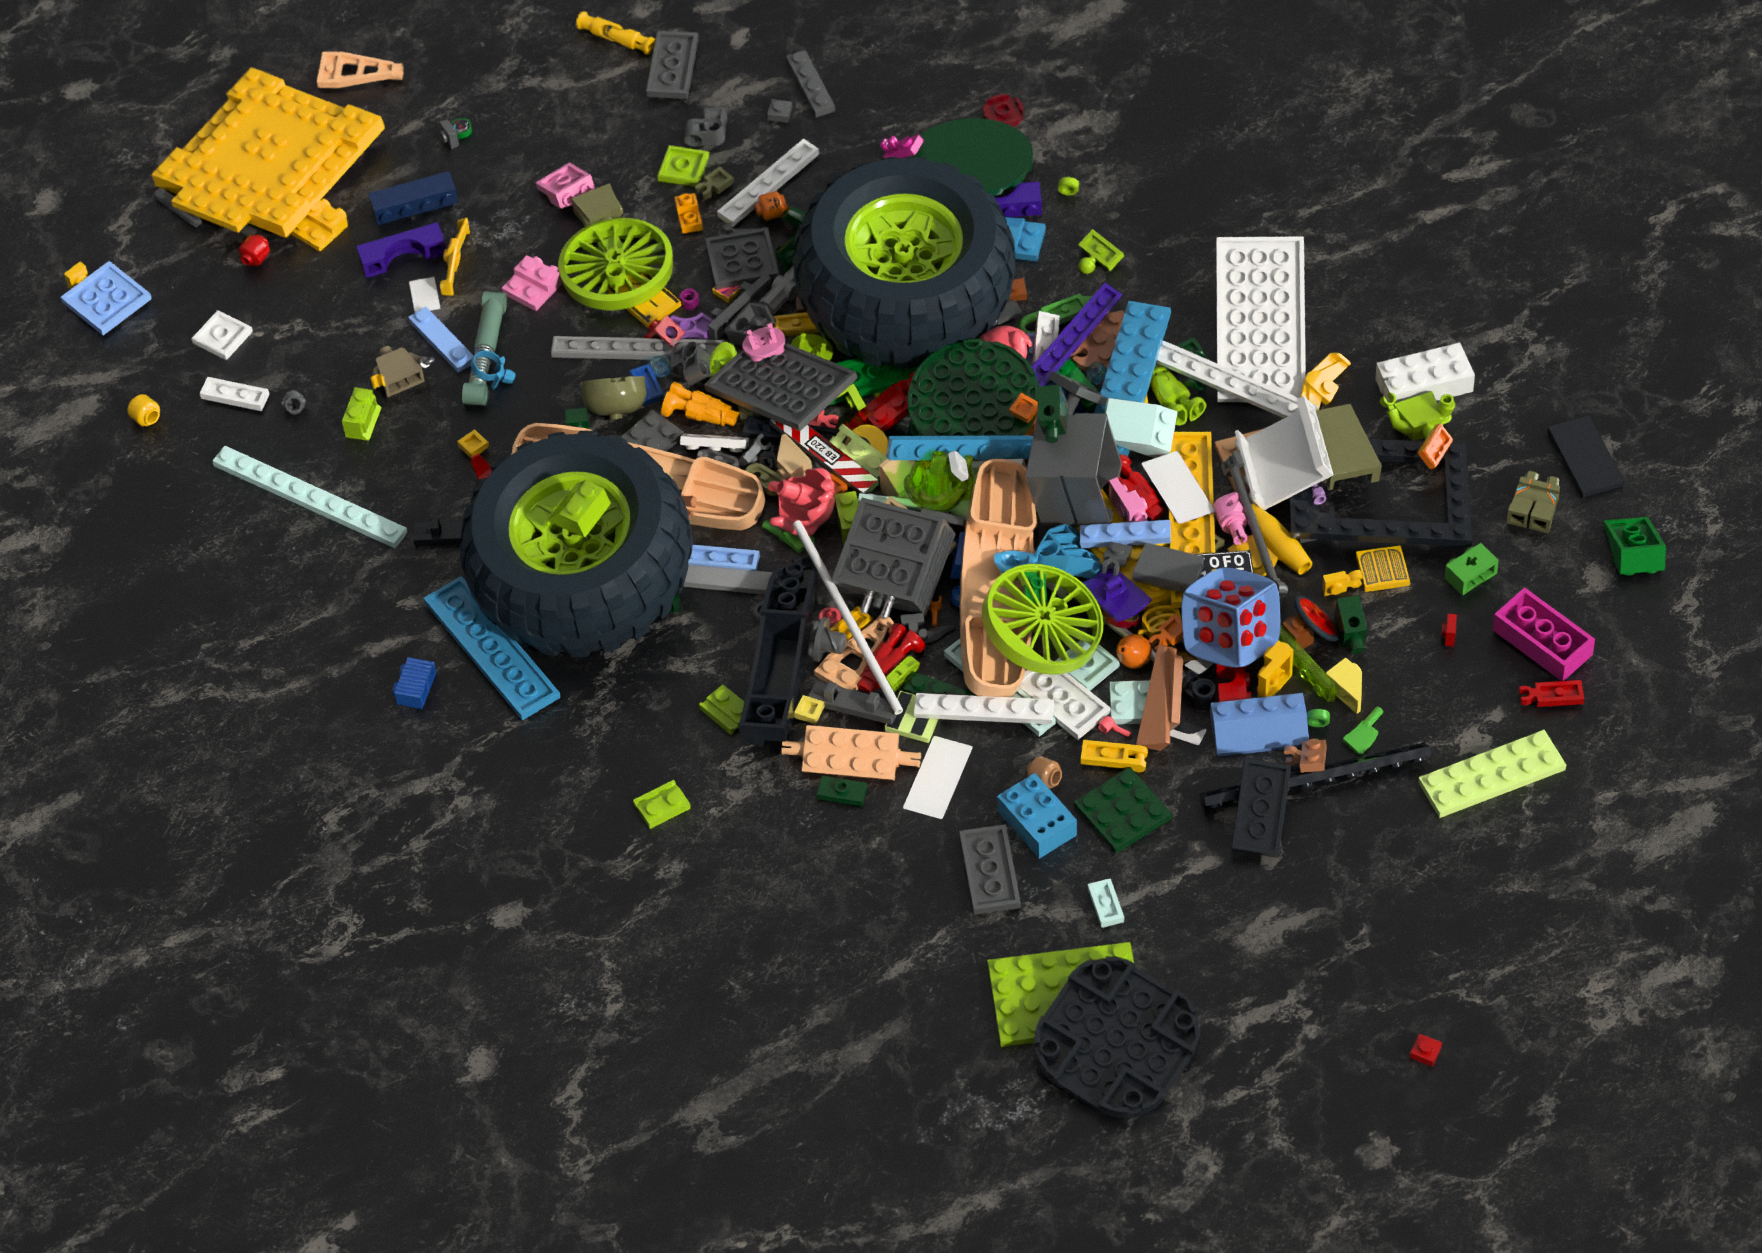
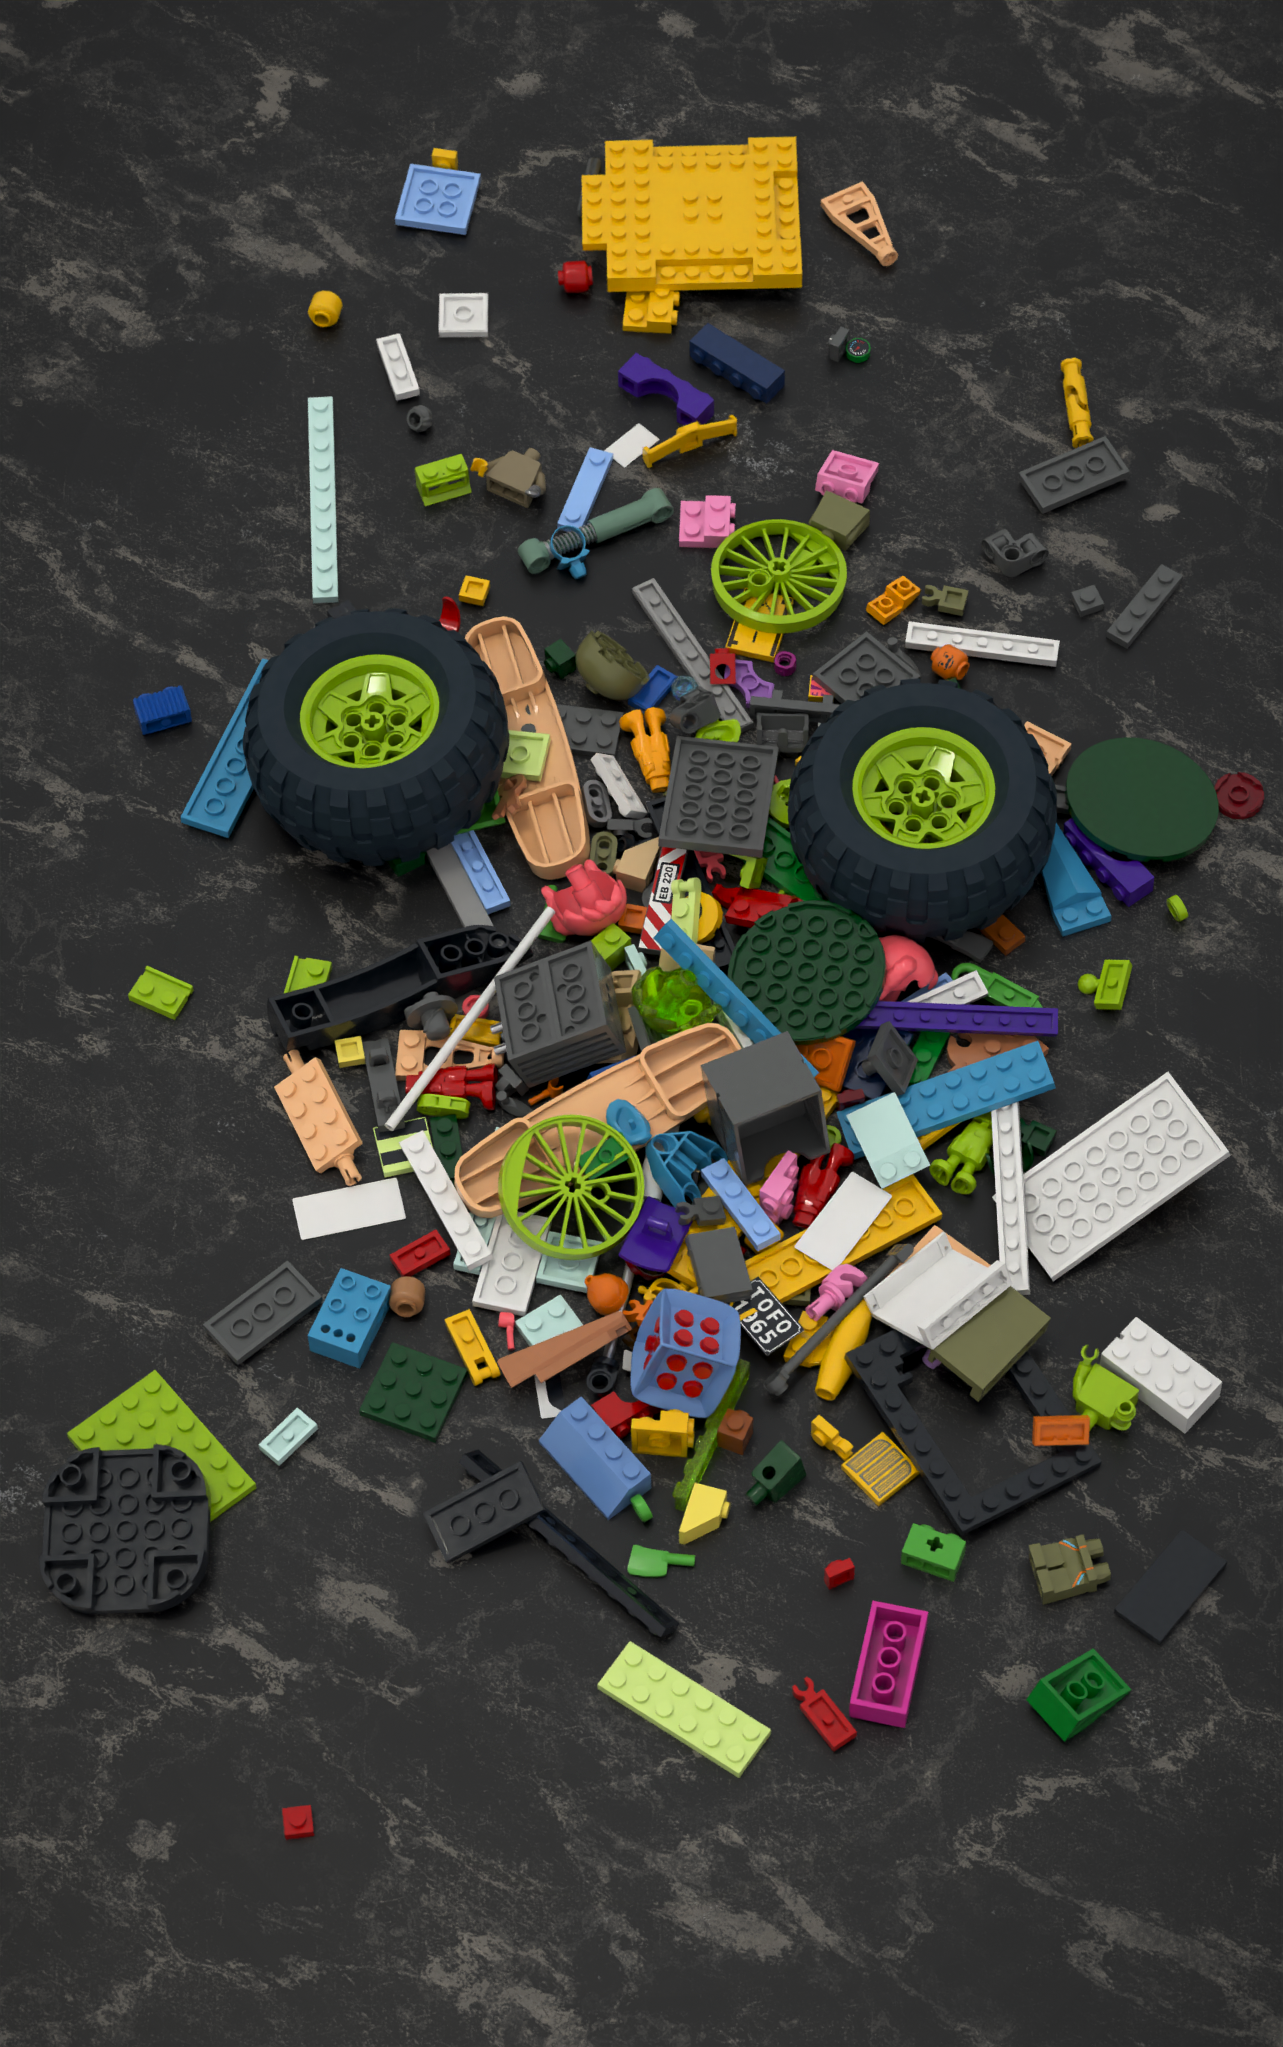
camera: 55 degrees right, 5 degrees up
(581, 508) = (372, 708): lime slope -> none
(683, 166) = (952, 561): lime tile -> none
(764, 343) = (758, 754): bright pink plate -> none
(842, 790) = (275, 1134): dark green plate -> none
(902, 148) = (1109, 731): dark pink plate -> none
(958, 465) = (694, 1003): white tile -> none
(1013, 749) = (420, 1254): none -> red plate
(1024, 408) = (816, 1022): orange plate -> none
(1052, 412) = (780, 1040): dark green torso -> none
(1096, 372) = (944, 1066): clear light blue tile -> none
(1311, 756) = (583, 1526): nougat plate -> none
(1316, 618) = (756, 1433): wheel -> none
(1319, 383) = (1076, 1279): yellow plate -> none

